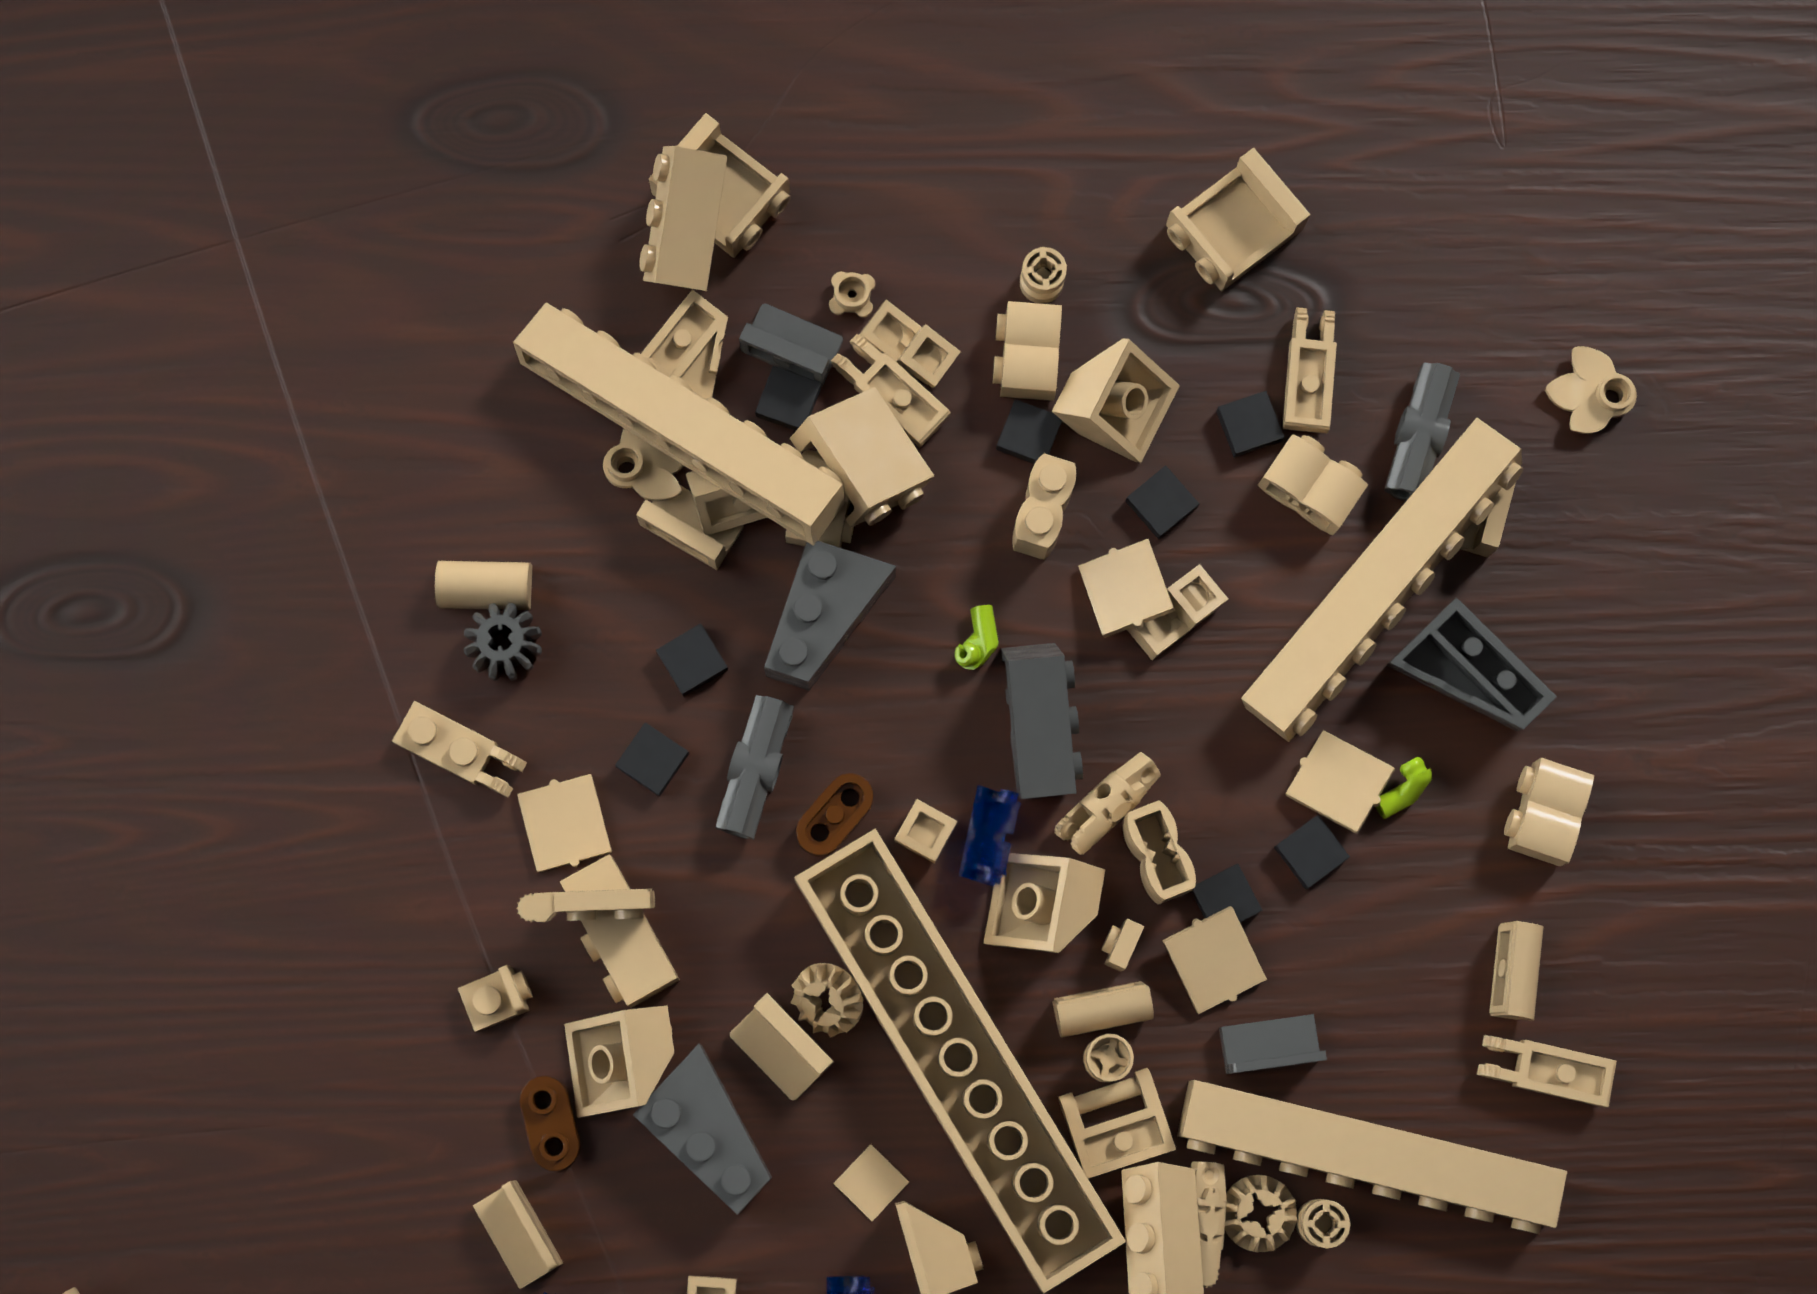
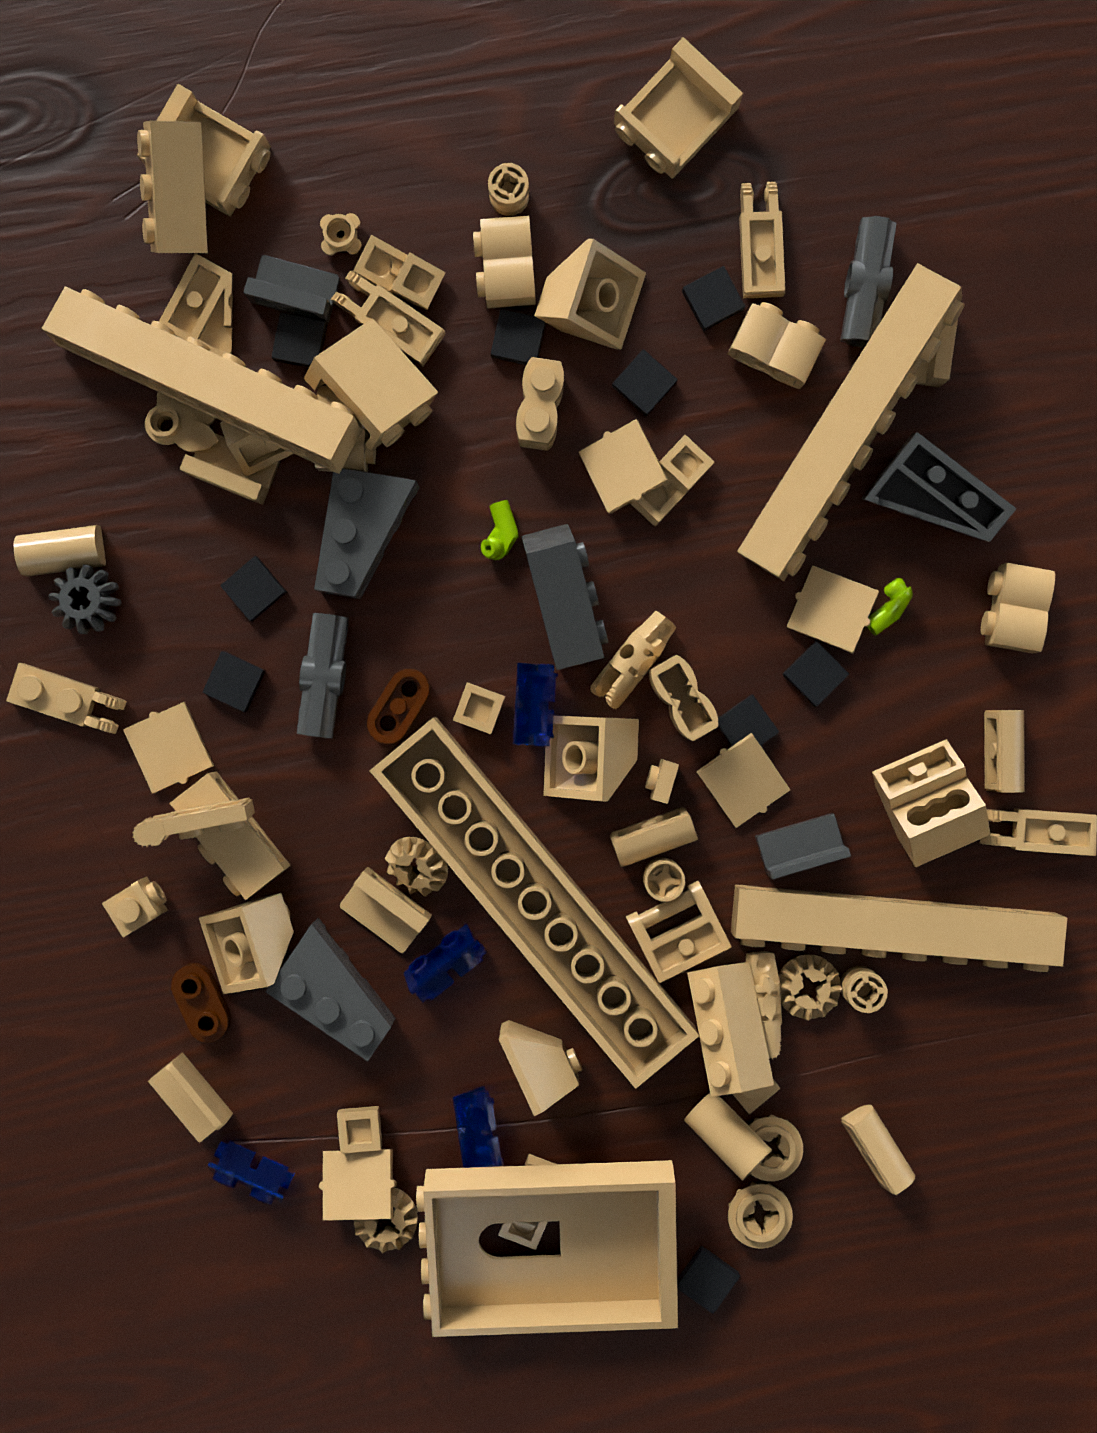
camera: 10 degrees left, 10 degrees up
(857, 1106) = (428, 973): none -> clear blue hinge
(871, 1182) = (479, 1009): tan sticker -> none
(1426, 1017) = (931, 803): none -> tan piece
(1586, 388) = (1010, 219): tan plate -> none

